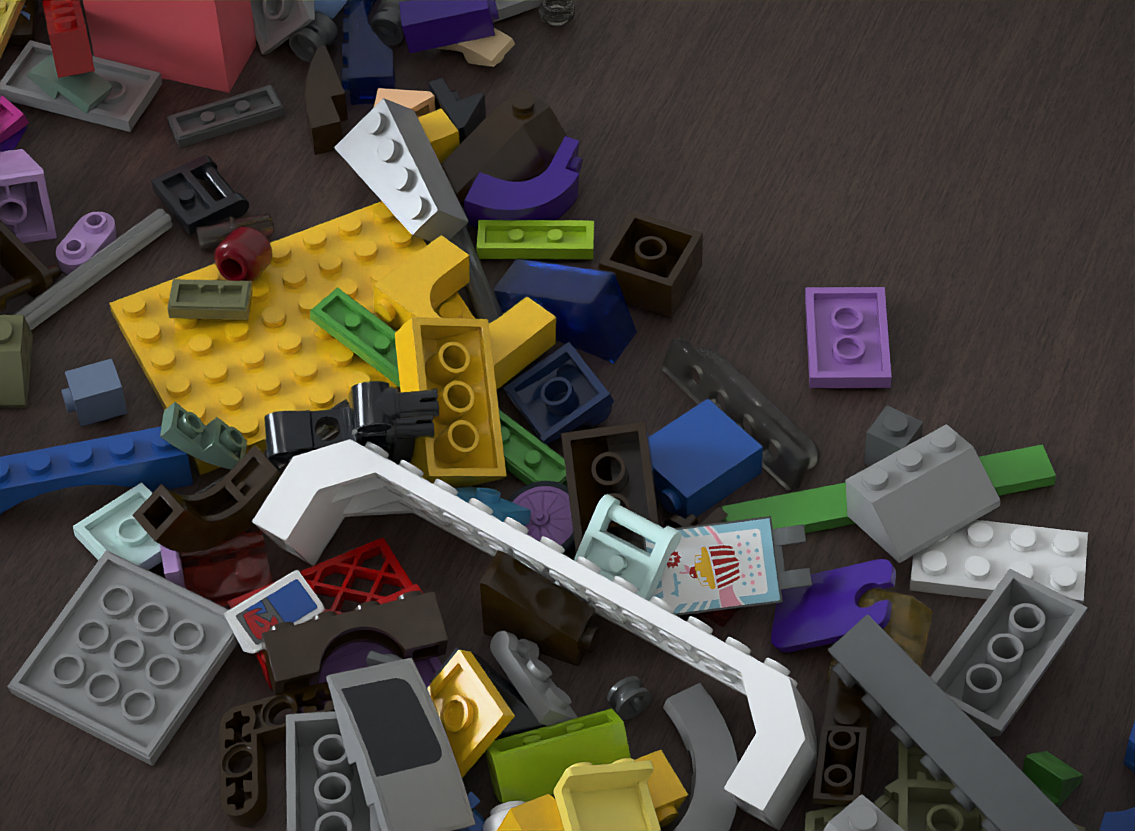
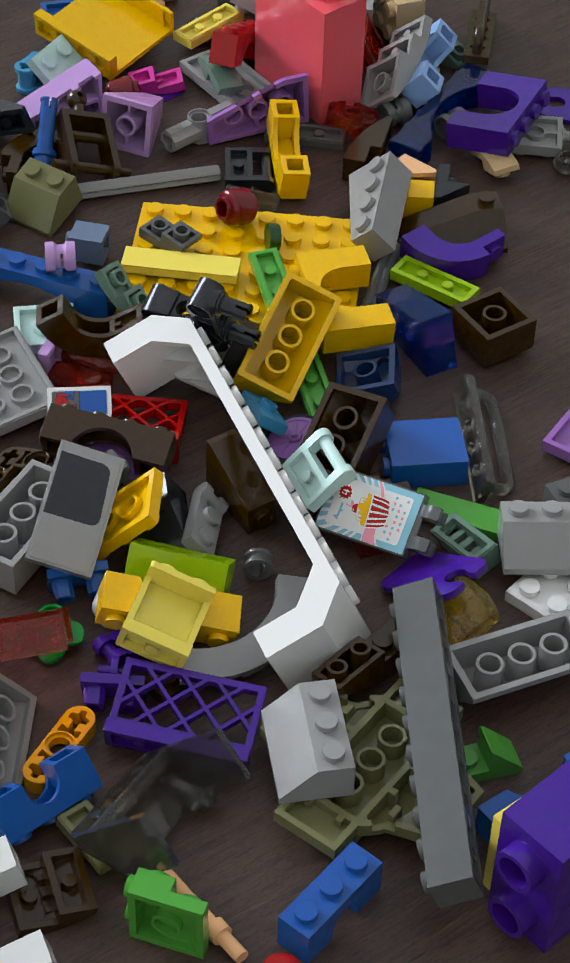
camera: 30 degrees right, 5 degrees down
(85, 240) = (166, 161): lavender plate -> none
(94, 167) = (191, 130): none -> light grey piece
(102, 433) = (53, 256): none -> lavender wheel
(163, 105) = (250, 114): none -> medium lavender wedge
(197, 335) = (168, 235): none -> dark grey slope
(208, 122) = (289, 166): none -> yellow arch
(210, 299) = (205, 223): olive plate -> none
(235, 366) = (180, 264): none -> light yellow tile
(270, 67) = (350, 118): none -> clear red plate
(317, 276) = (272, 236): none -> dark green tile
(830, 533) = (485, 547): none -> sand green slope

